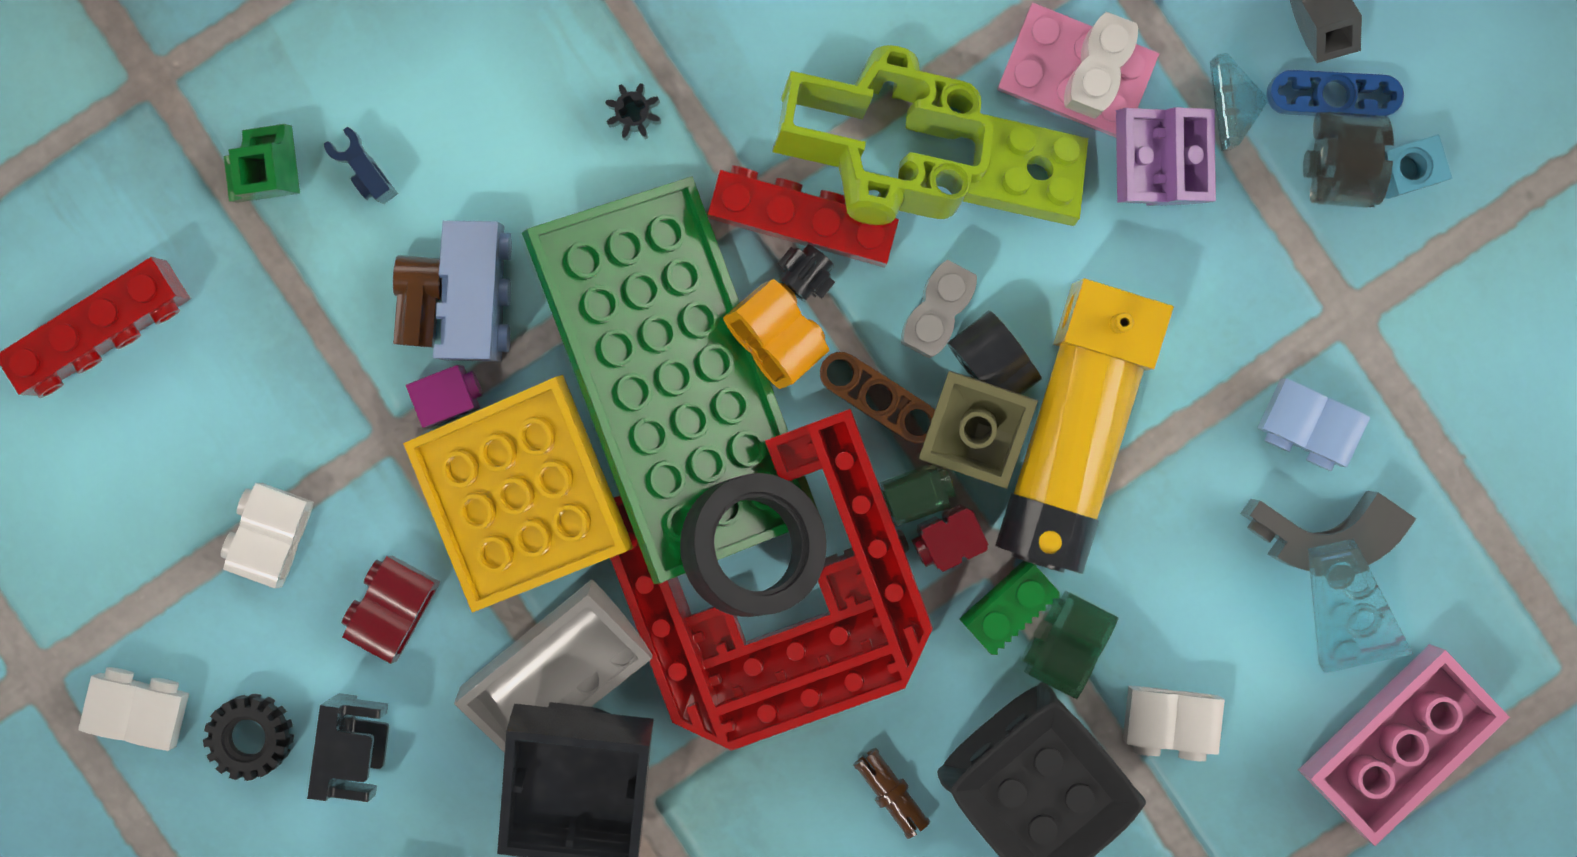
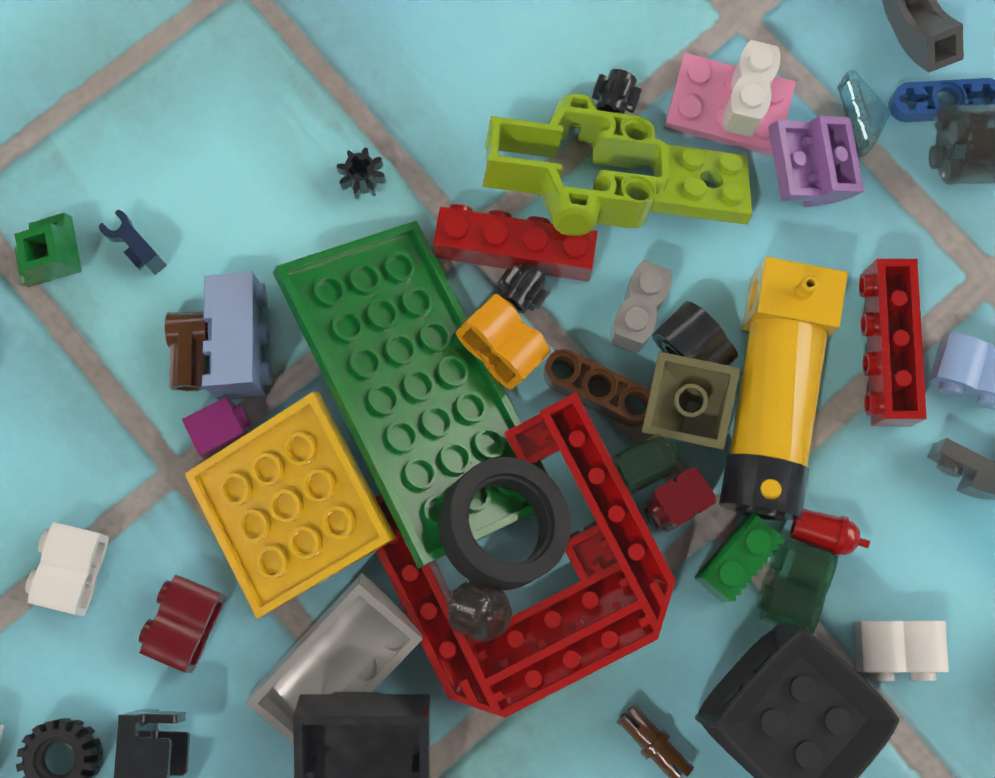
camera: 10 degrees left, 10 degrees down
(715, 637) = (479, 611): none -> clear smoke head
(944, 46) = (616, 92): none -> black gear
(1113, 588) = (828, 532): none -> red piece
(1219, 383) = (893, 343): none -> red brick

